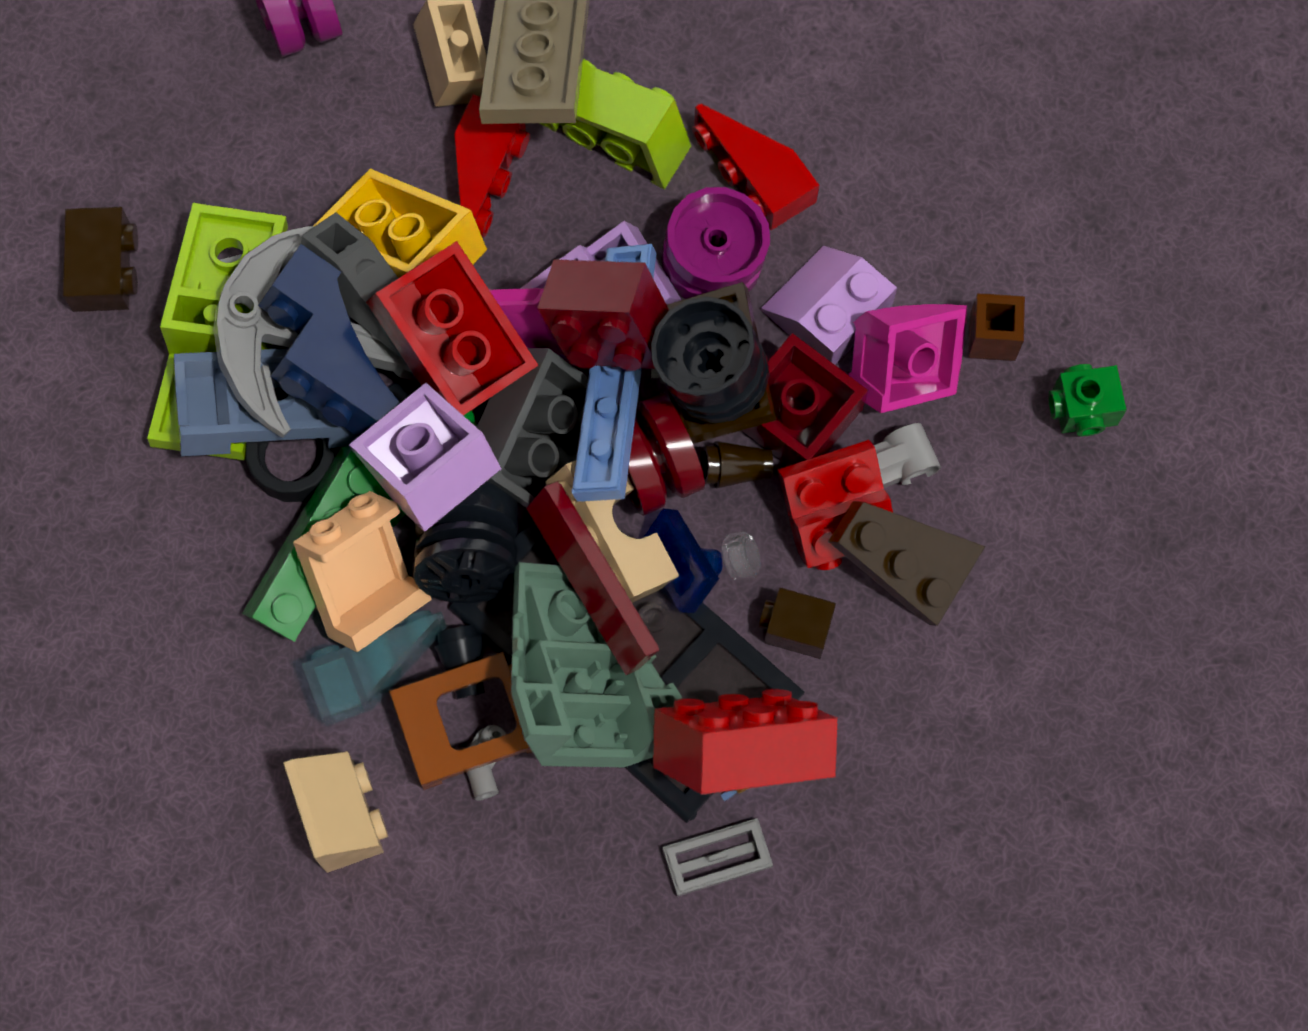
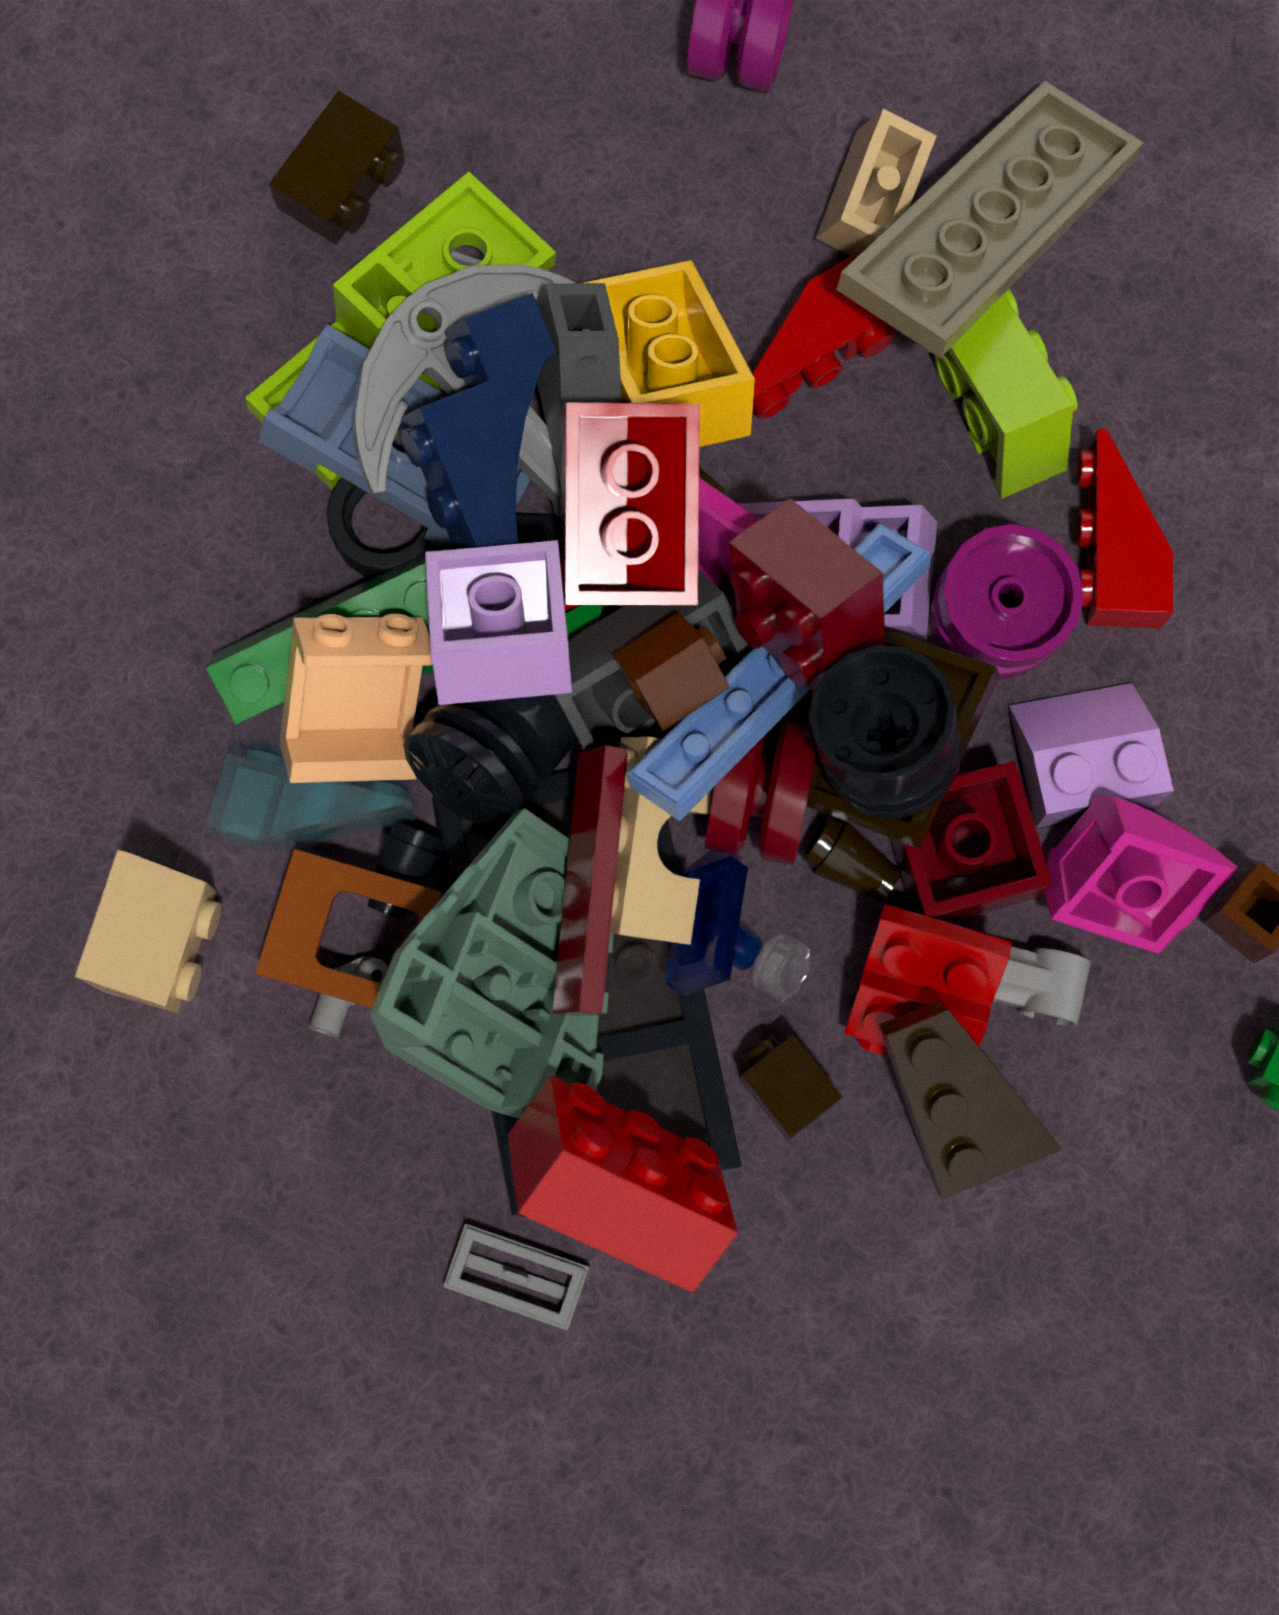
camera: 40 degrees right, 5 degrees up
(552, 414) = (673, 670): none -> reddish brown brick

